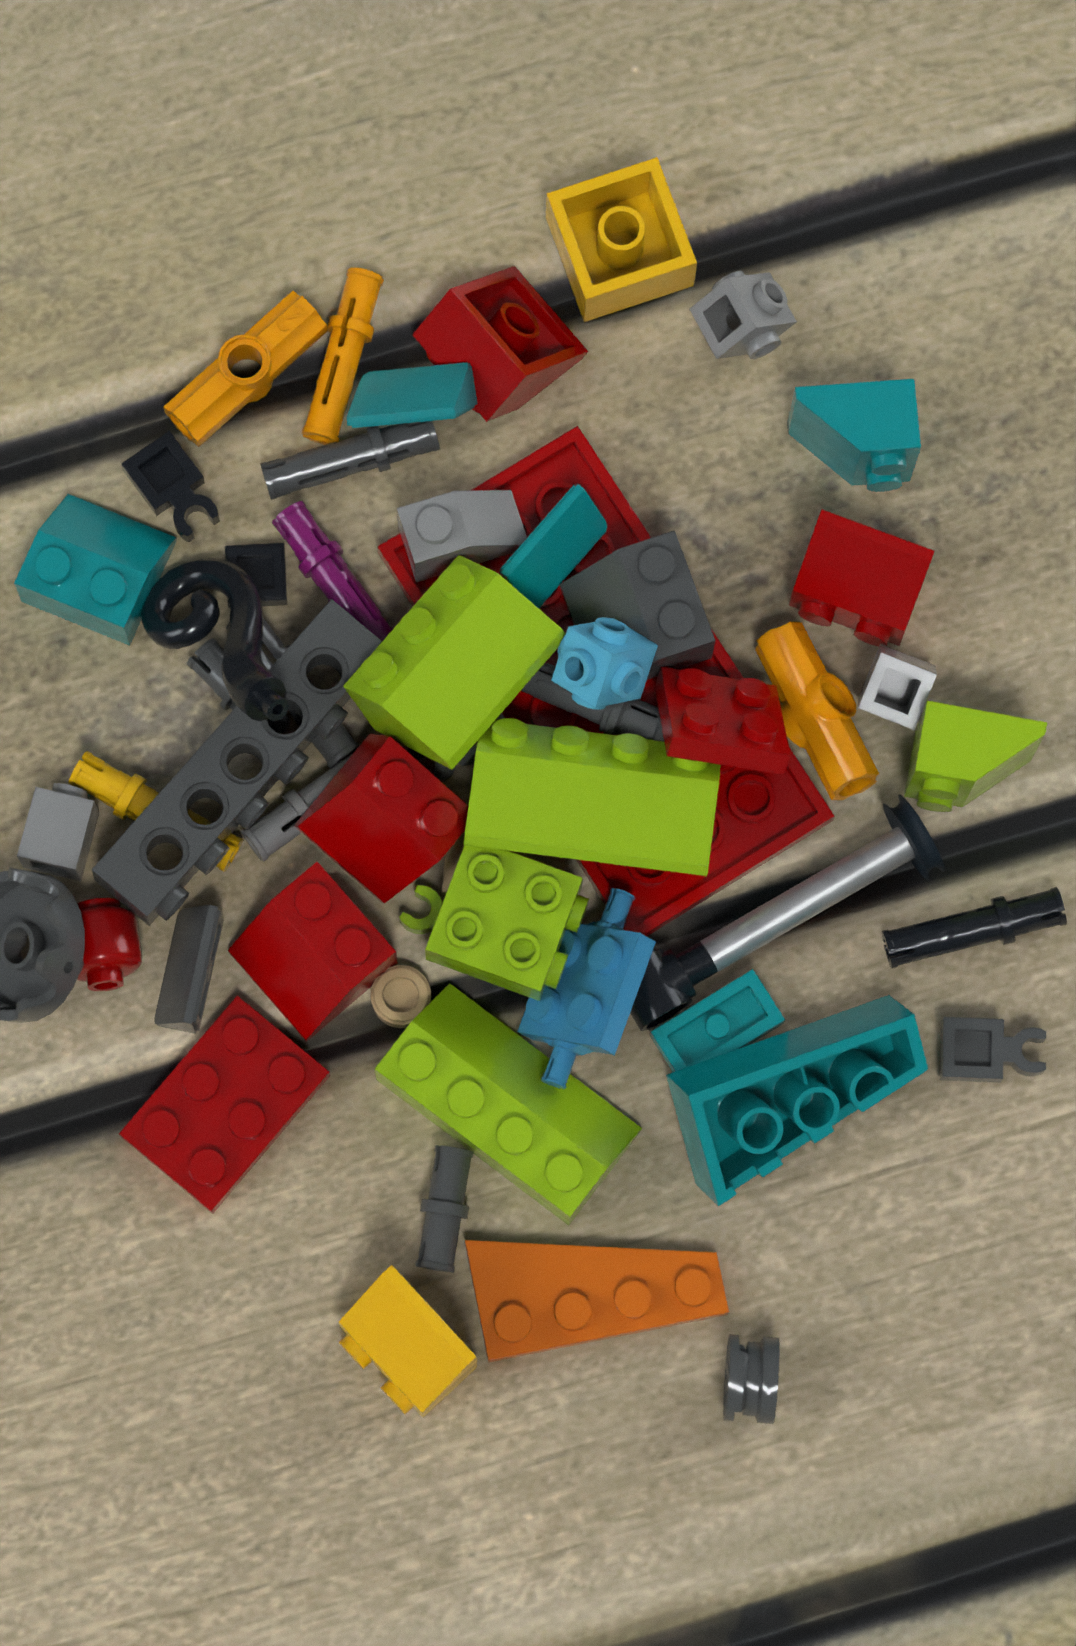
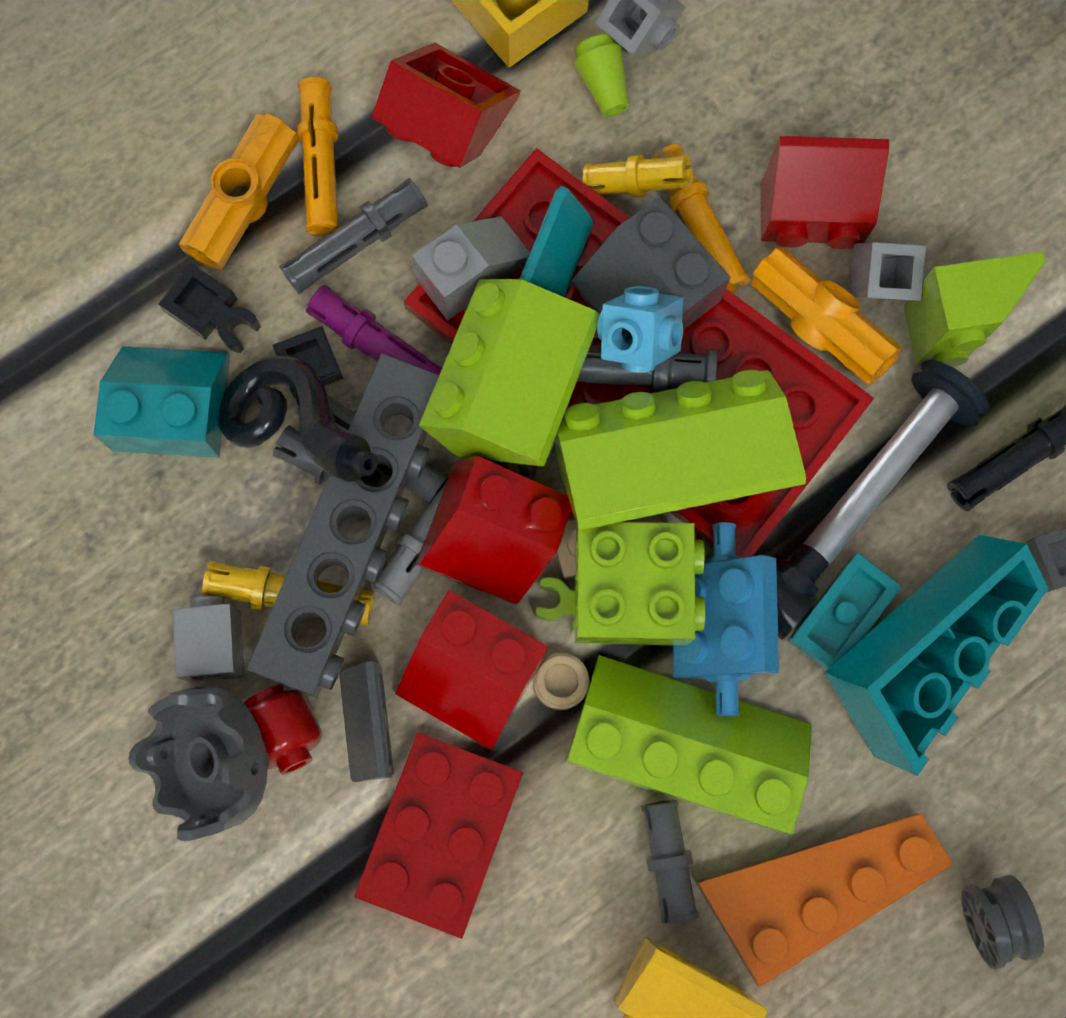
camera: 20 degrees left, 0 degrees up
(413, 395) = (389, 164): teal slope -> none
(674, 493) = (639, 175): none -> yellow pin
(682, 365) = (602, 70): none -> lime cone
(722, 720) = (761, 345): red plate -> none
(725, 549) = (704, 224): none -> light orange pin
(860, 430) = (775, 70): teal slope -> none

